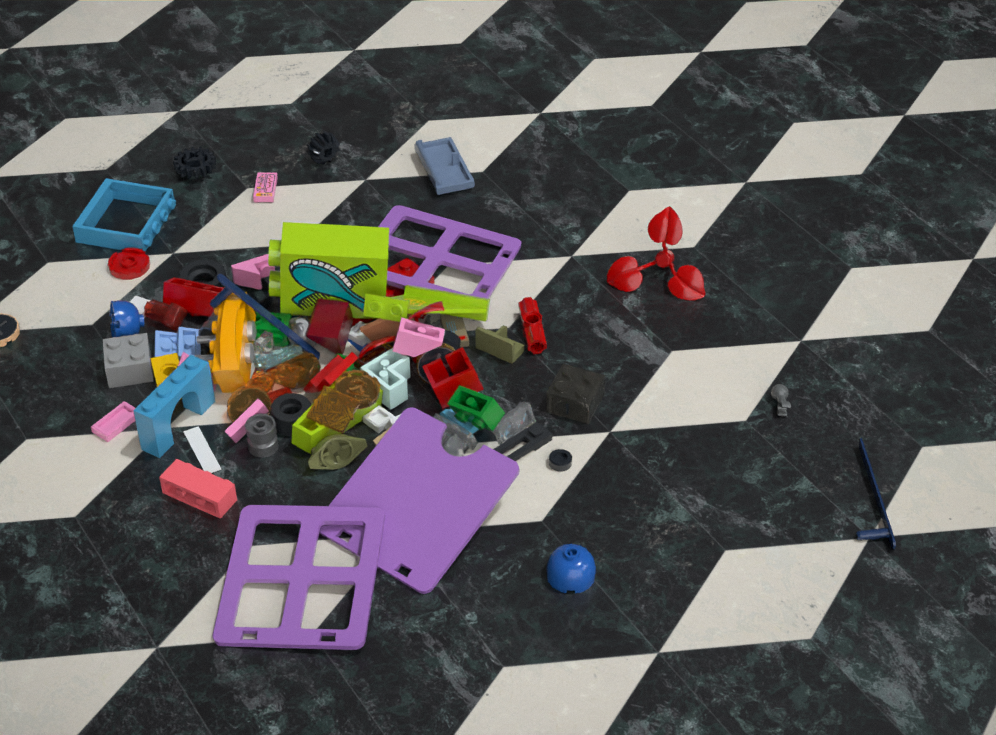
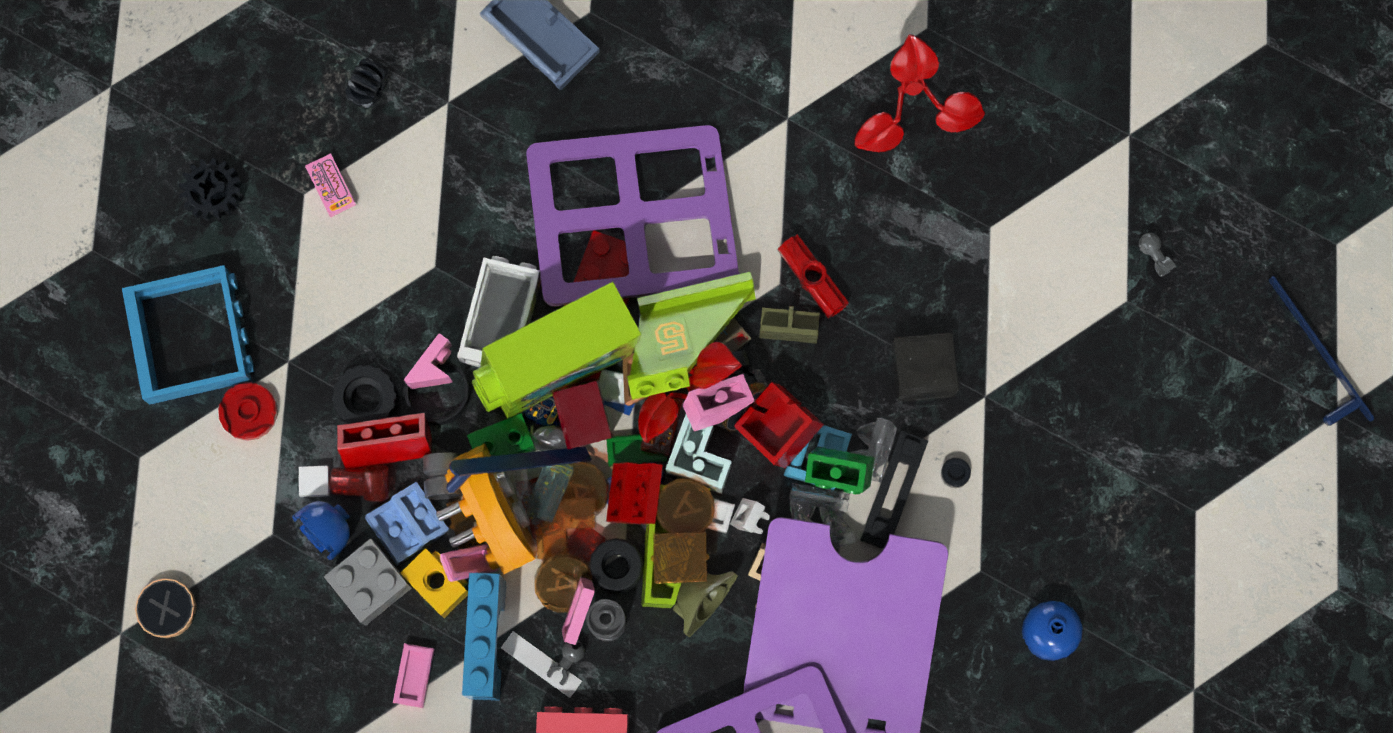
camera: 25 degrees left, 35 degrees up
(226, 448) = (569, 657): none -> dark grey arm

